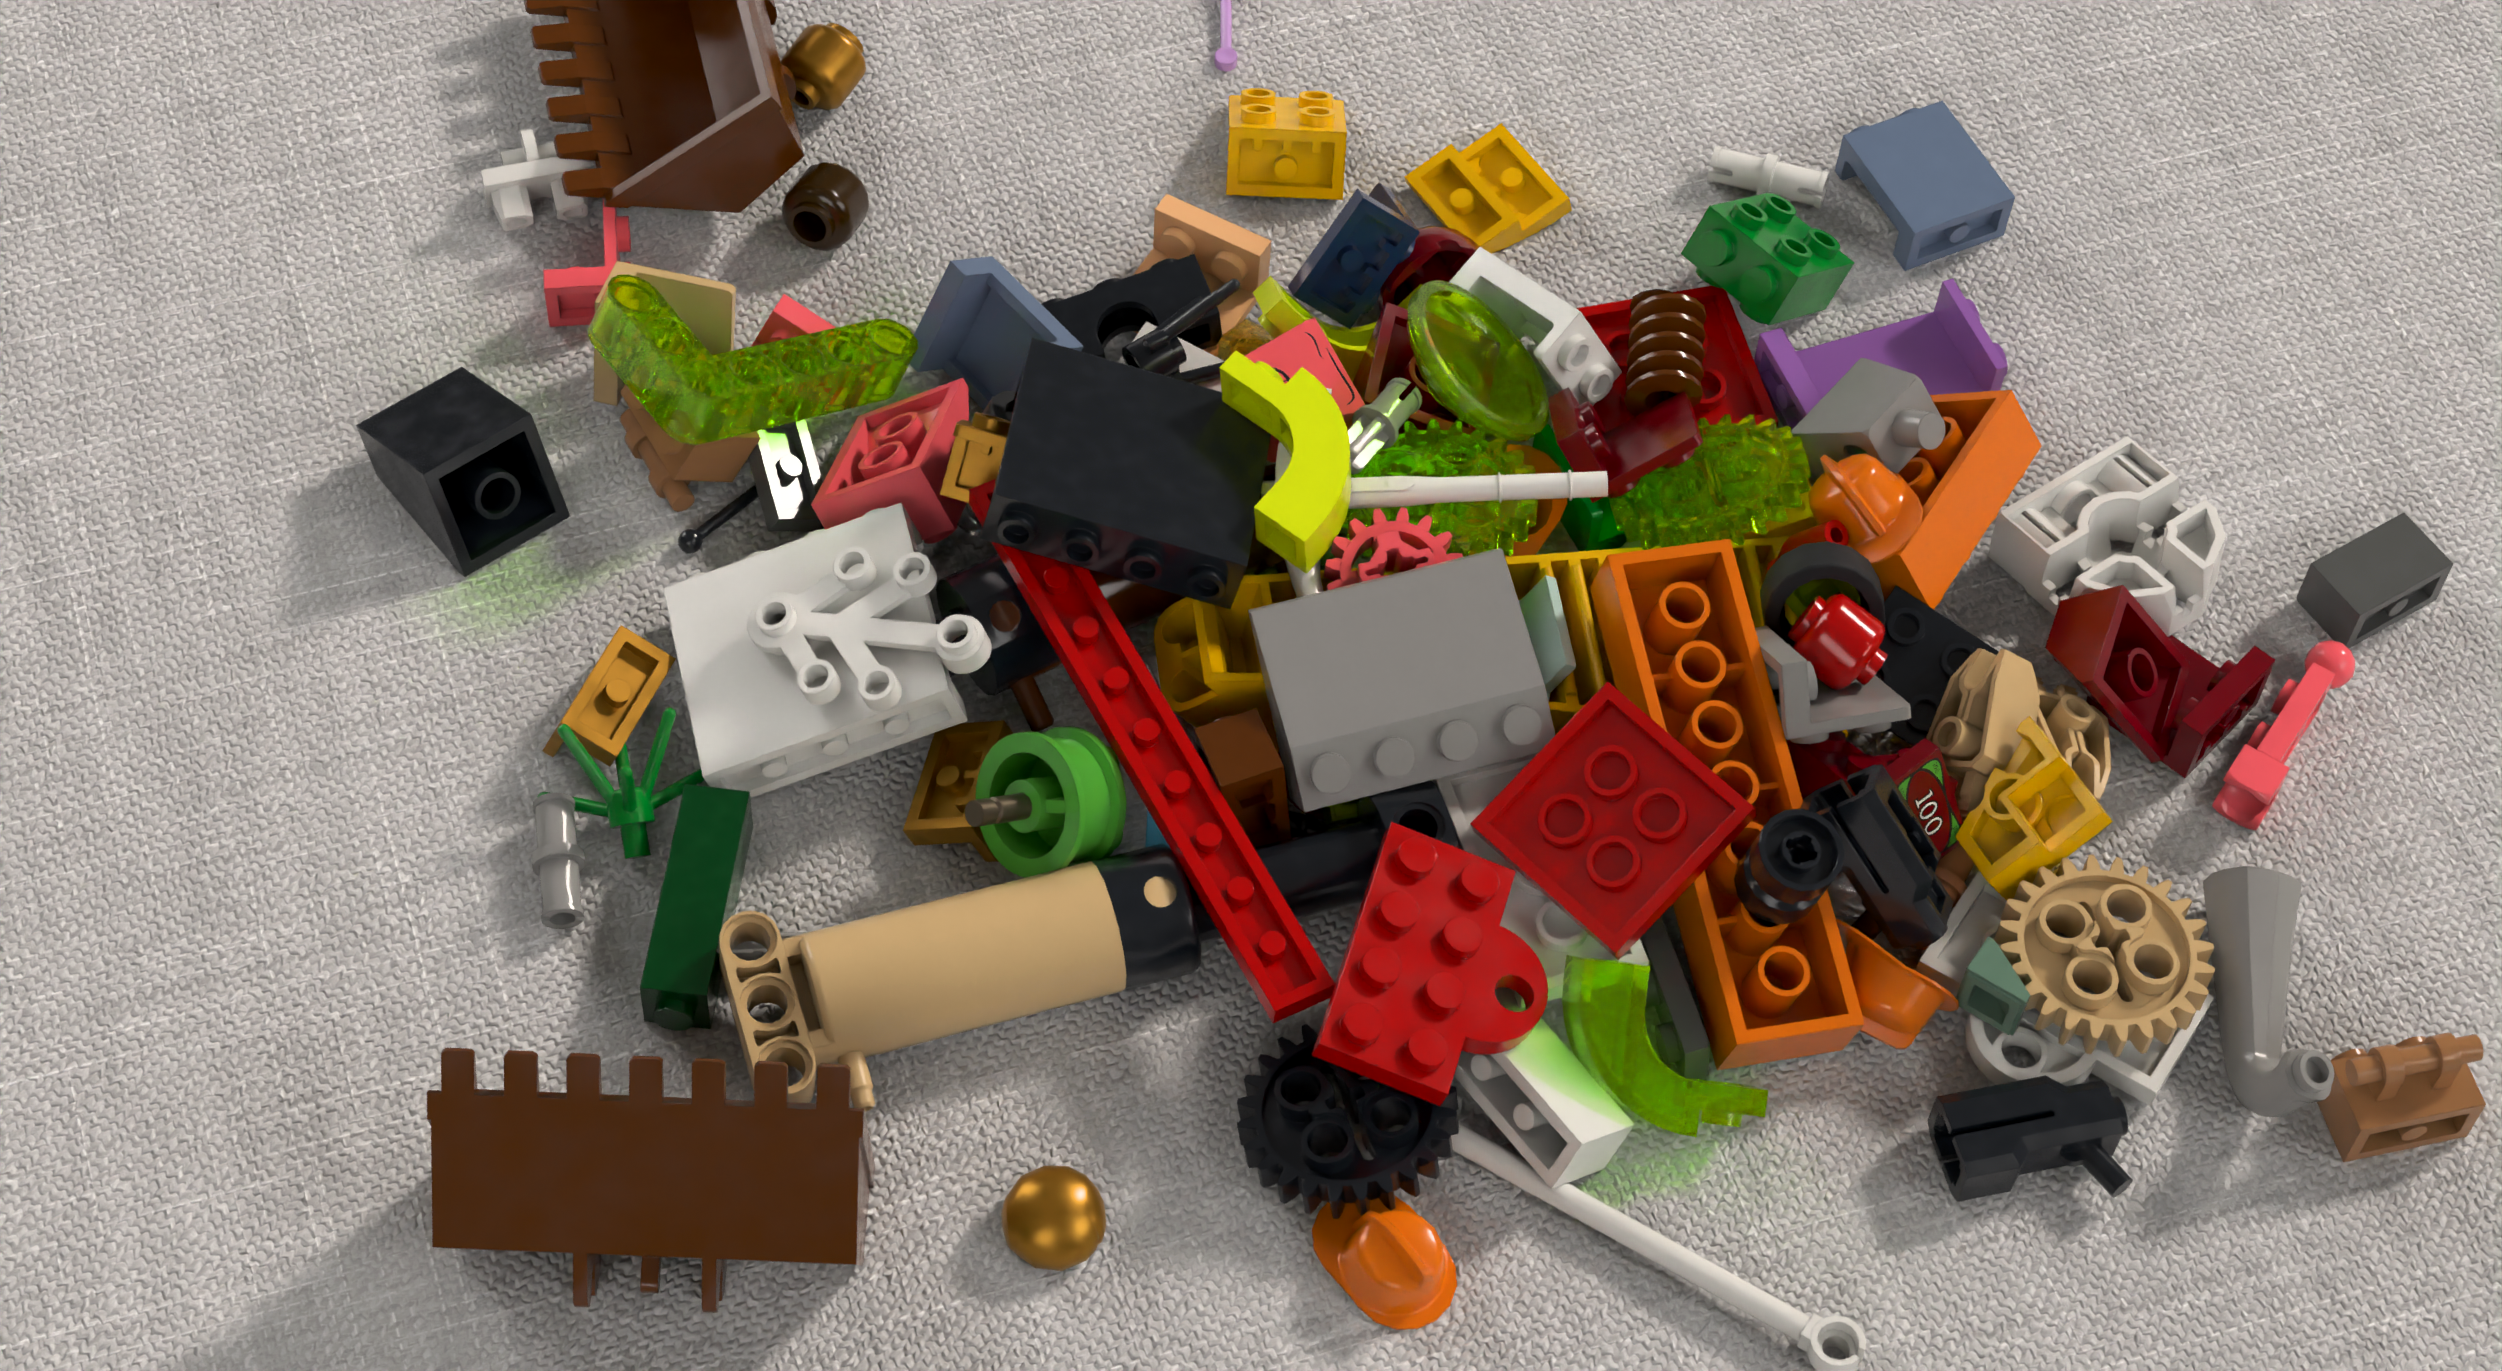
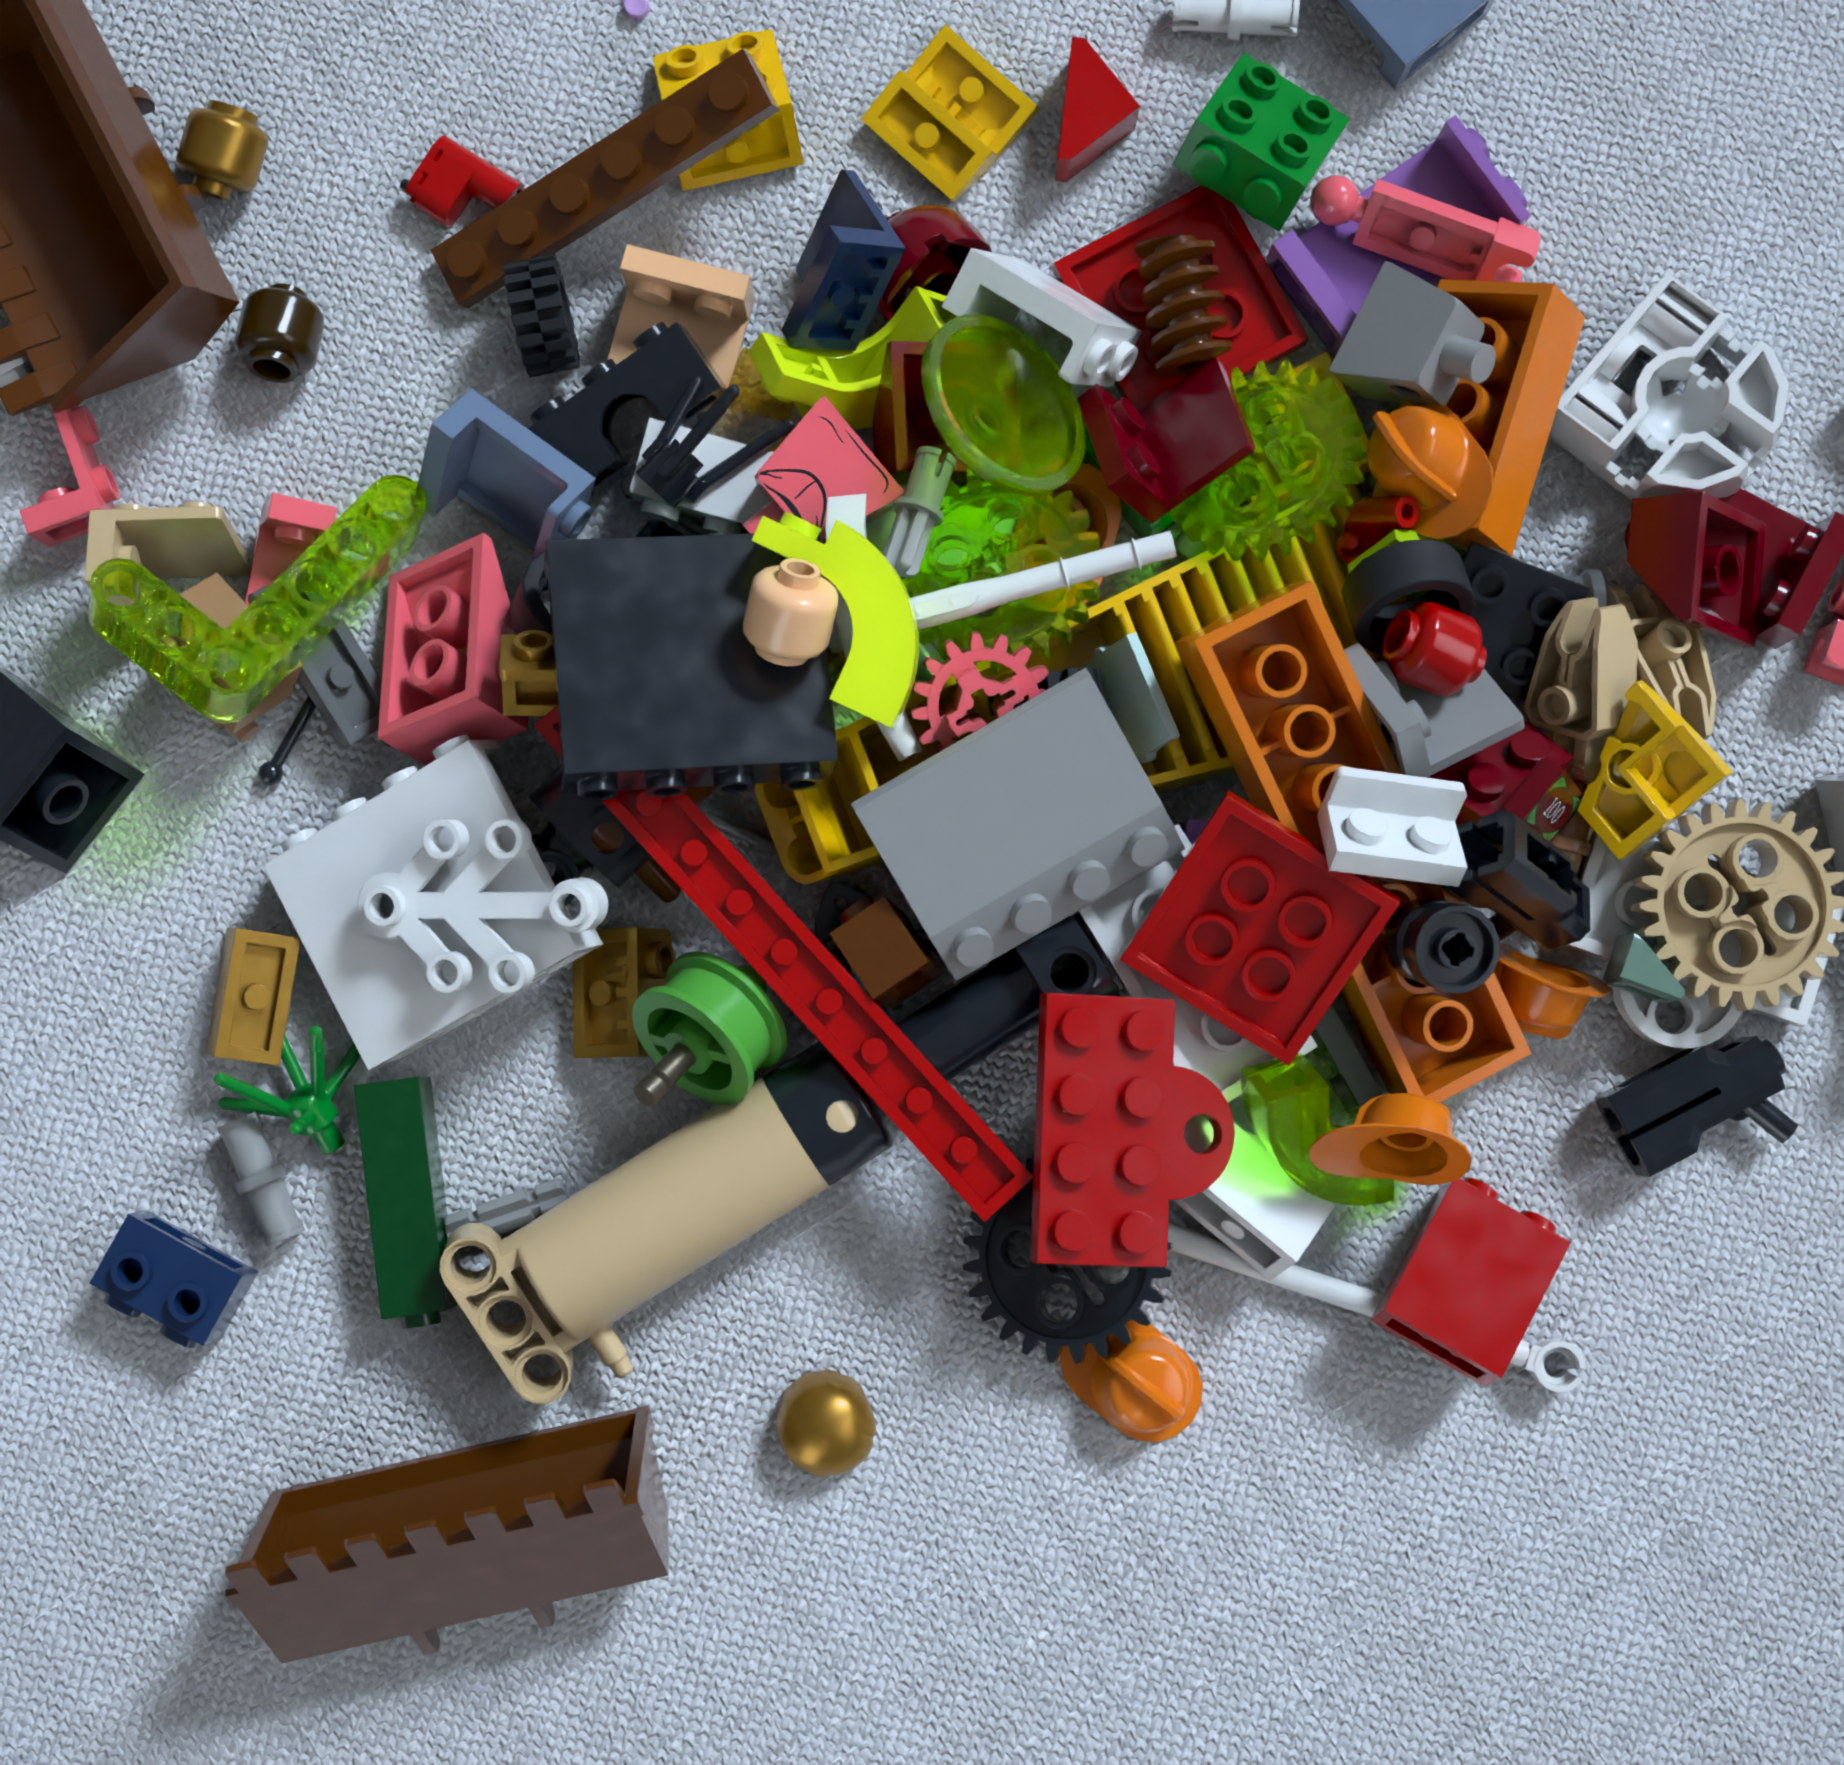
camera: 10 degrees left, 30 degrees up
(441, 920) = (172, 1279): none -> dark blue brick
(1020, 137) = (452, 177): none -> red piece
(1070, 239) = (541, 315): none -> black tyre
(1158, 152) = (607, 177): none -> reddish brown plate
(1238, 429) = (790, 612): none -> light nougat head
(1619, 217) = (1095, 111): none -> red slope
(1699, 1046) = (1397, 1140): none -> orange piece
(1758, 1228) = (1471, 1280): none -> red brick
(1765, 745) = (1393, 826): none -> white bracket
(1898, 347) = (1427, 231): none -> coral plate

